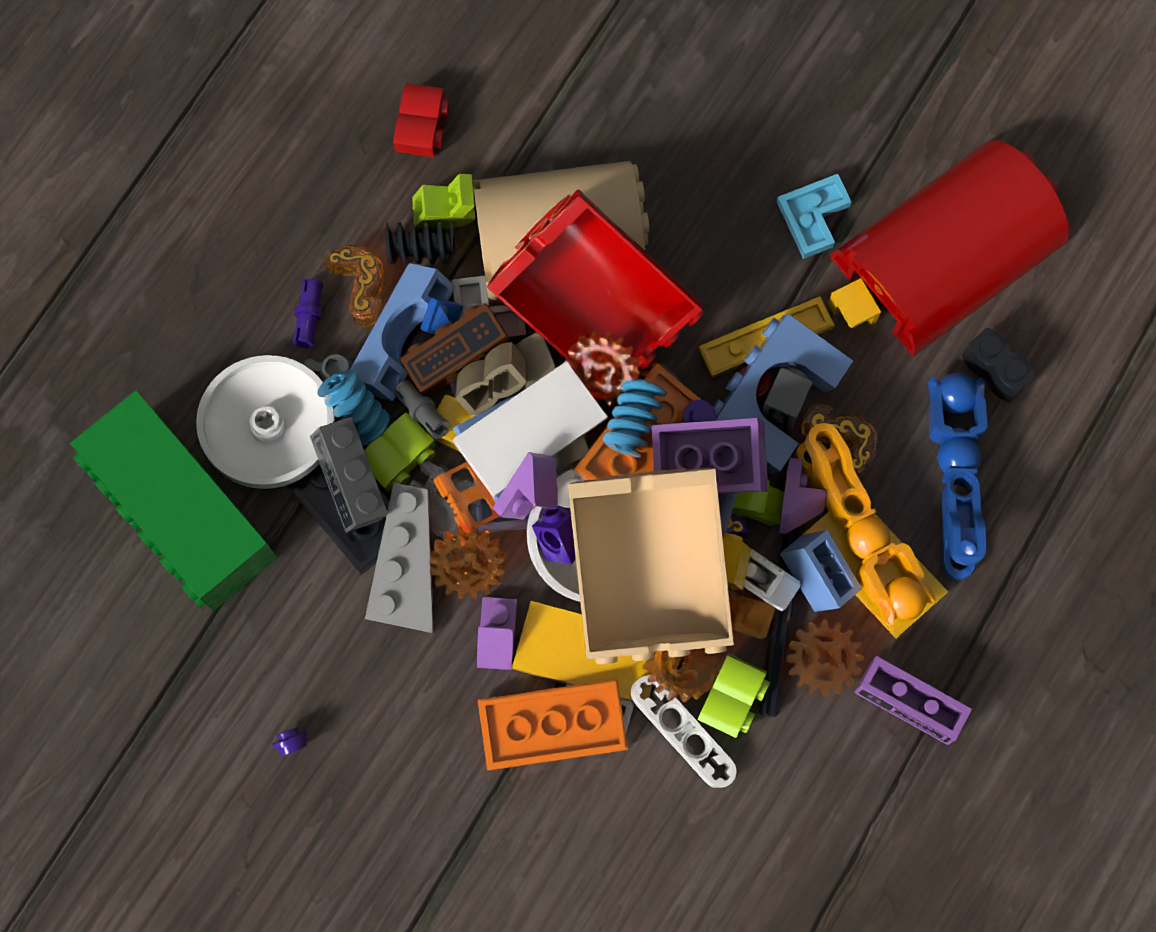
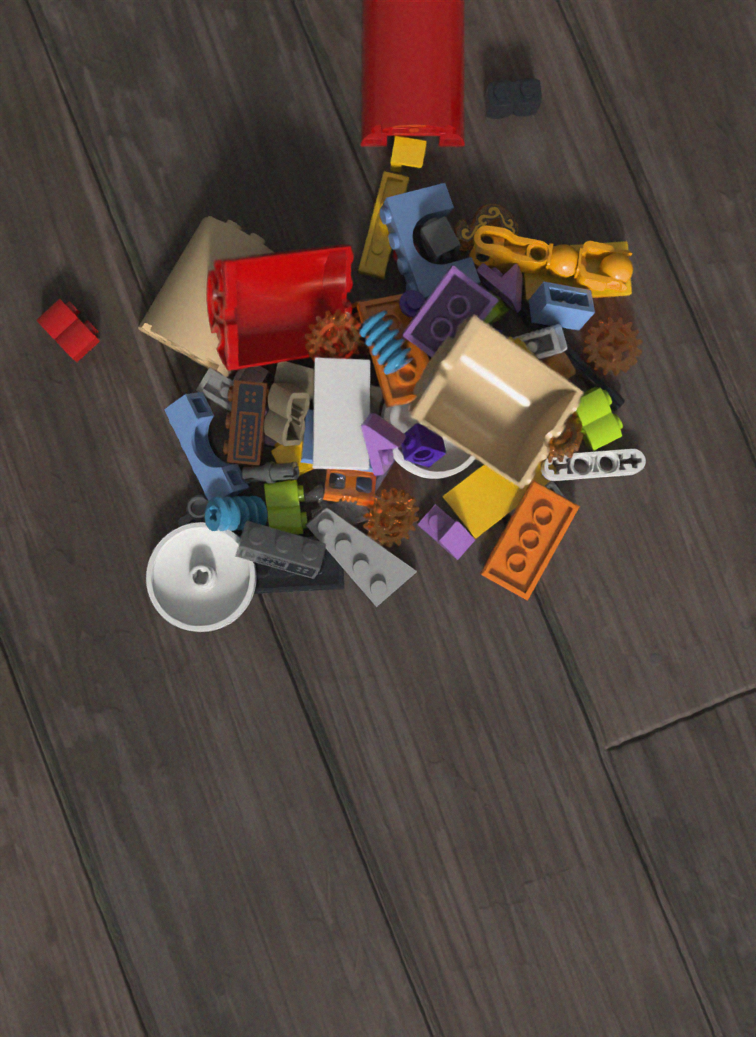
camera: 55 degrees left, 10 degrees up
(172, 501) = (209, 675): green brick -> none
(290, 741) = (420, 708): dark purple plate -> none
(307, 313) = (146, 498): dark purple pin -> none
(368, 282) = (156, 444): clear orange animal -> none
(420, 243) = (155, 391): black piece -> none
(440, 313) = (215, 415): blue tile -> none
(445, 203) = (141, 357): lime brick -> none
(805, 211) = (322, 137): medium azure plate -> none
(913, 700) = (679, 313): medium lavender brick -> none
(959, 459) = (593, 196): blue piece -> none

